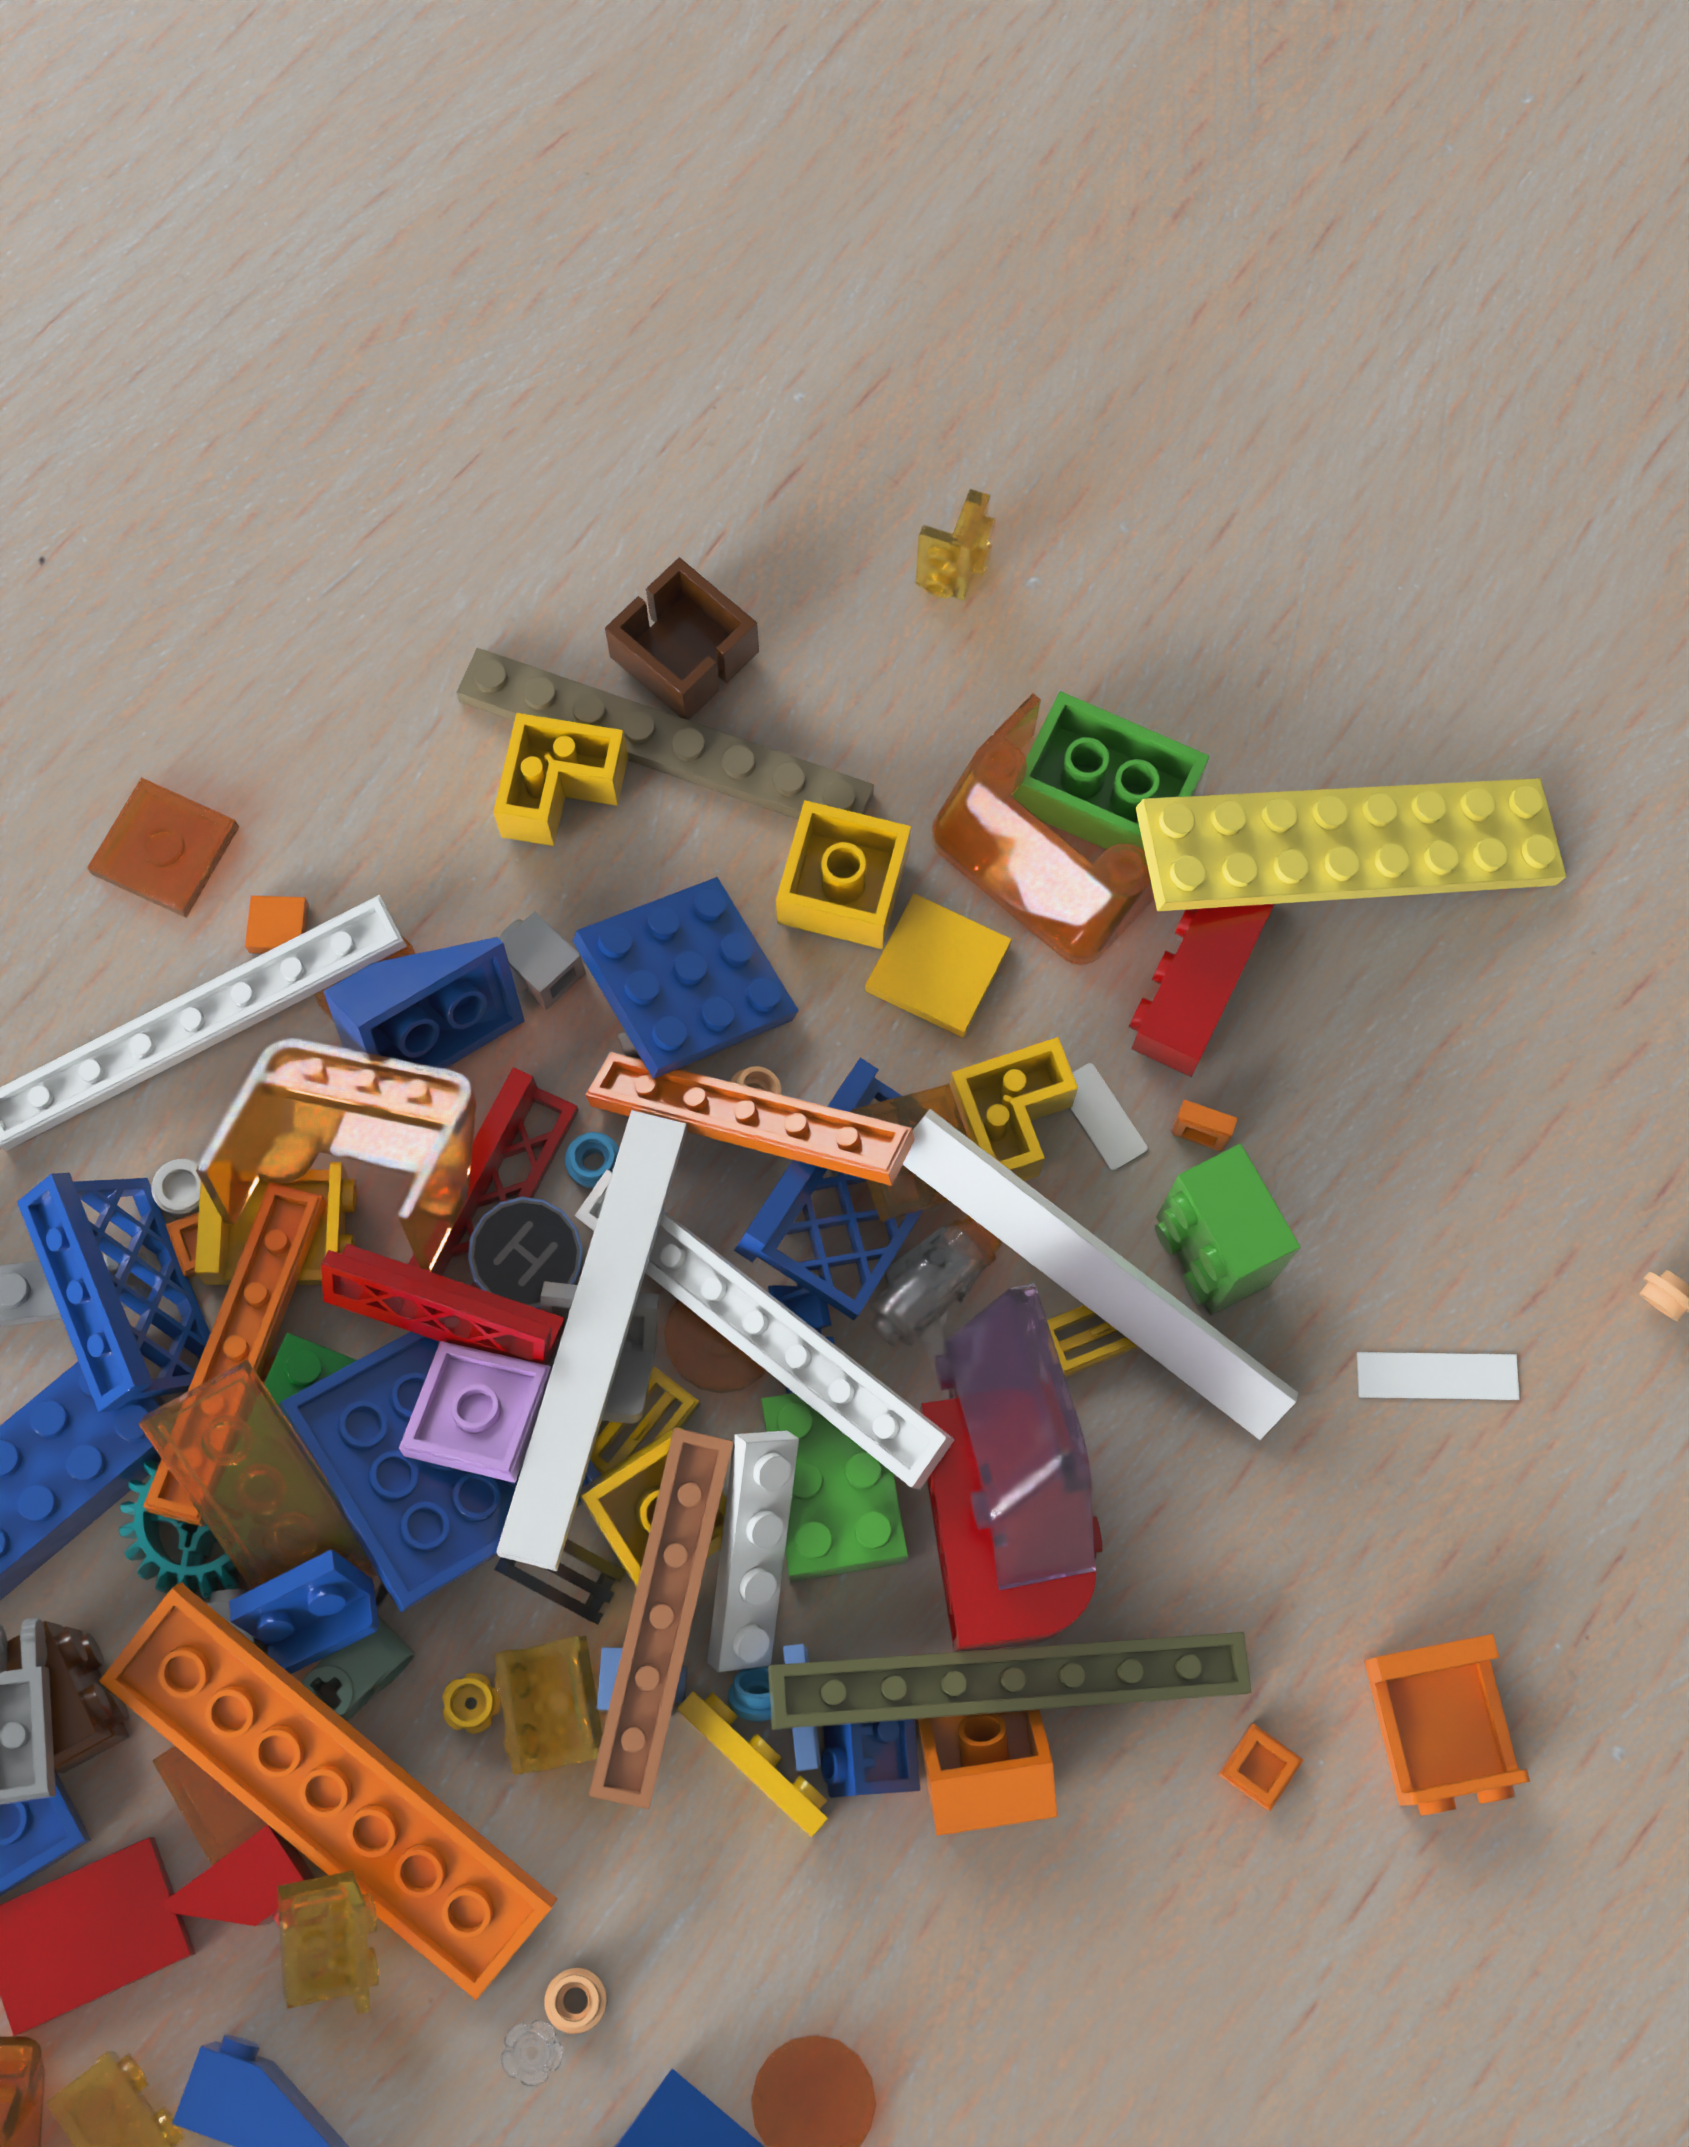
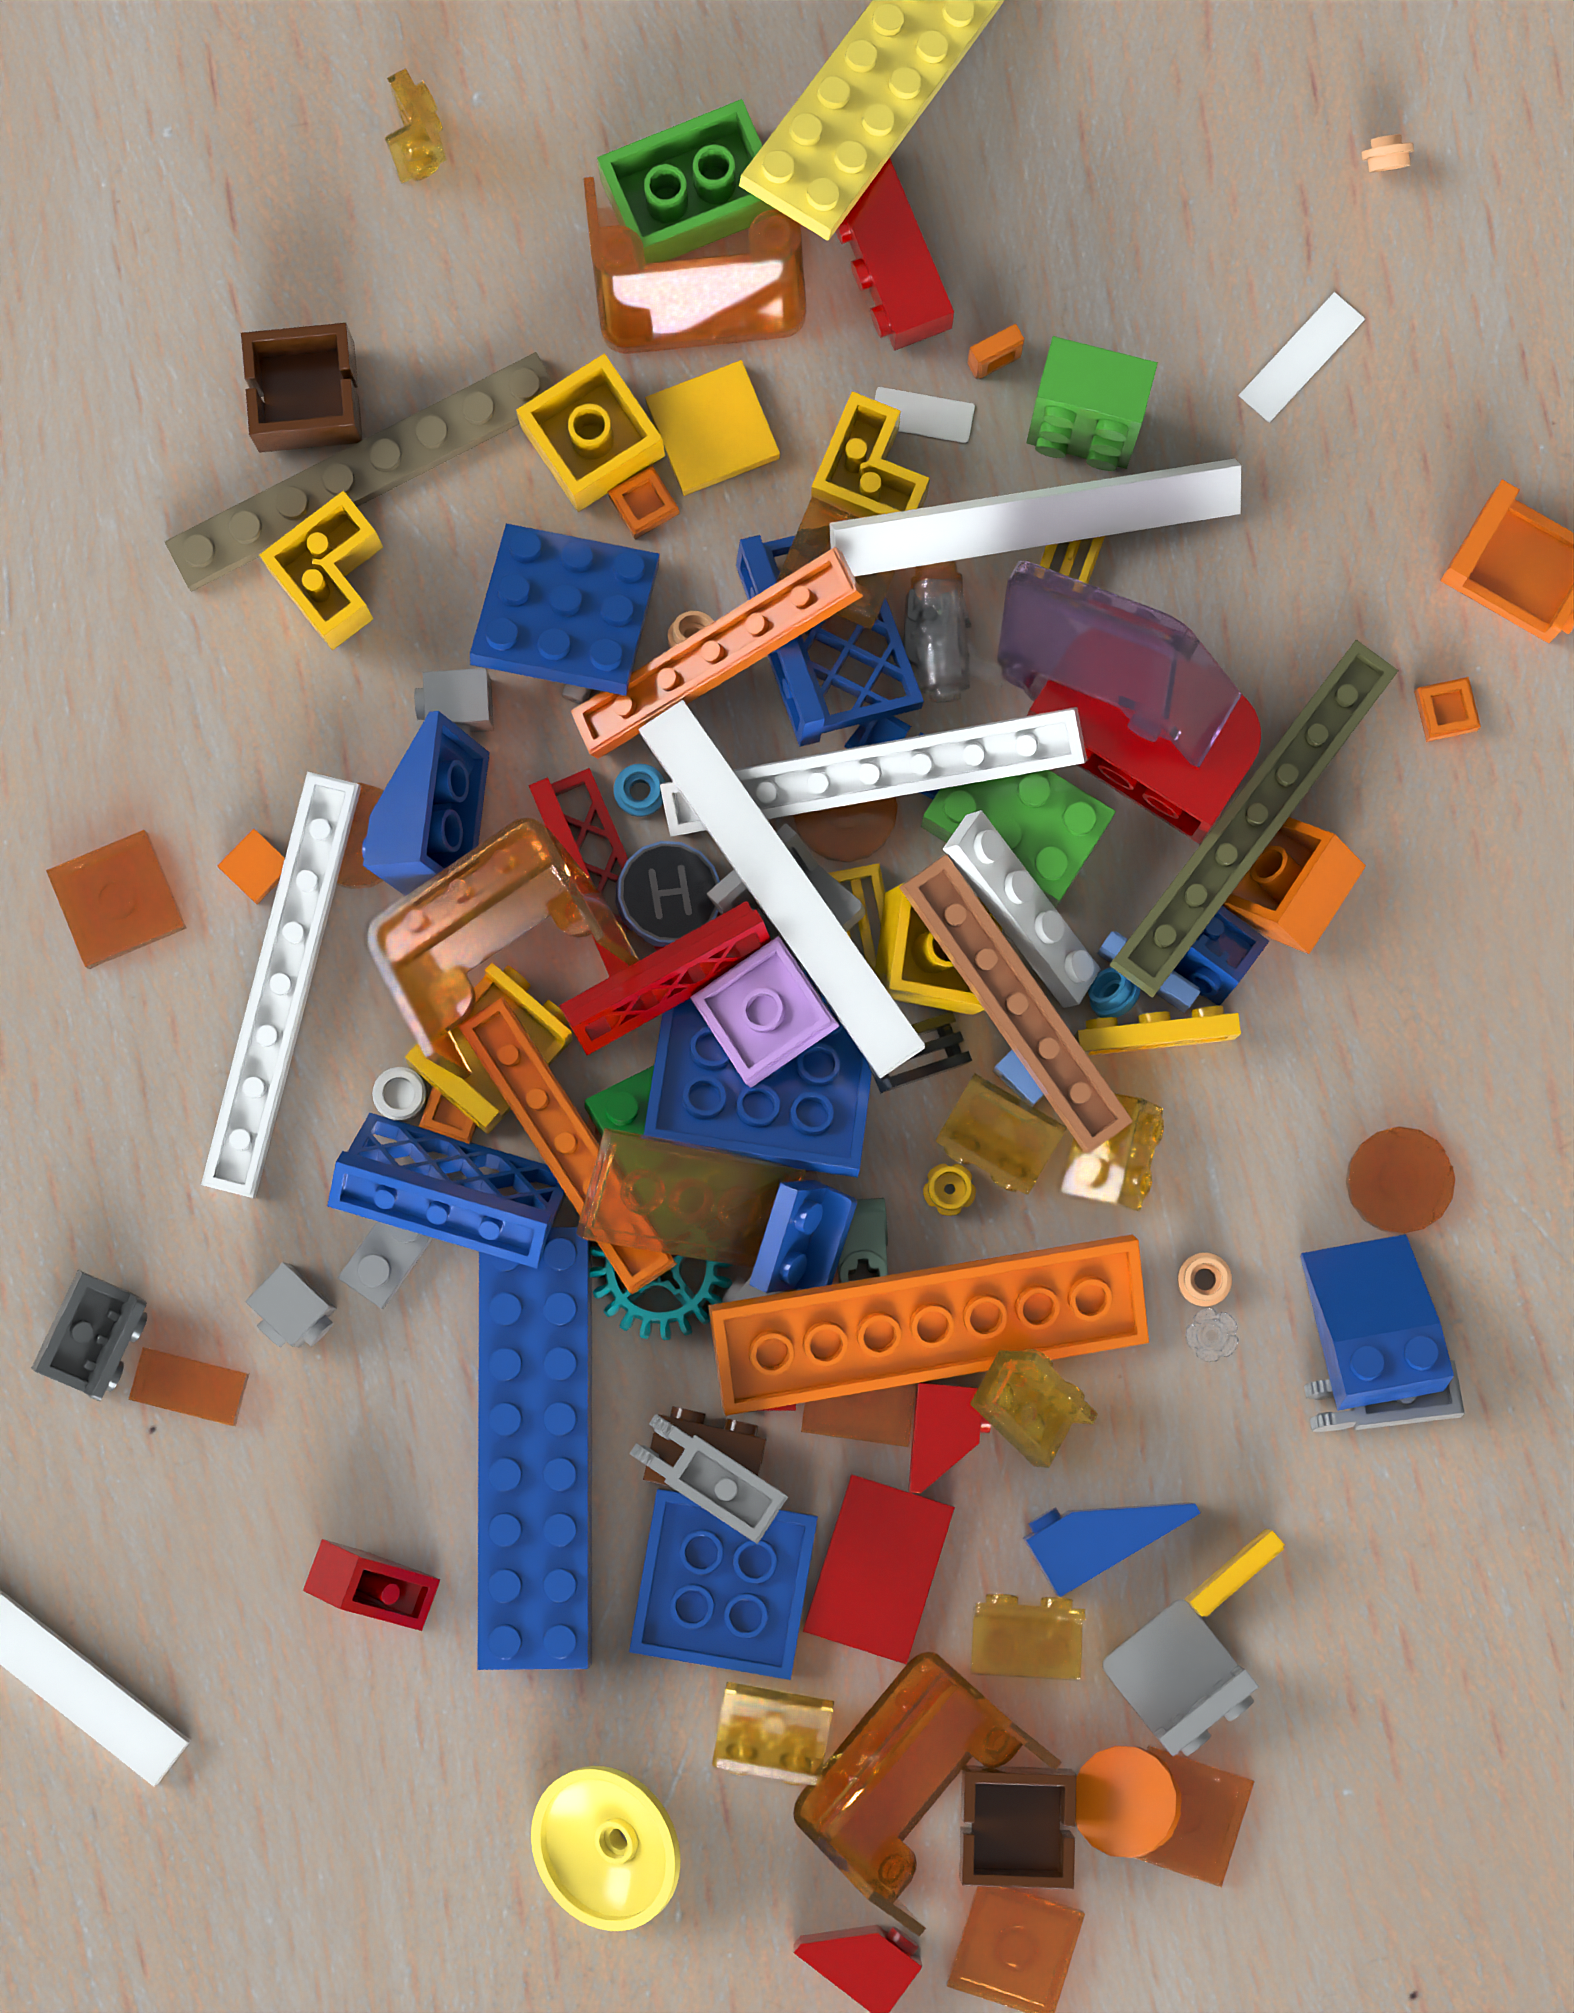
camera: 45 degrees left, 10 degrees up
(612, 1836) = (1121, 1166): none -> clear yellow bracket
(830, 965) = (643, 502): none -> orange tile

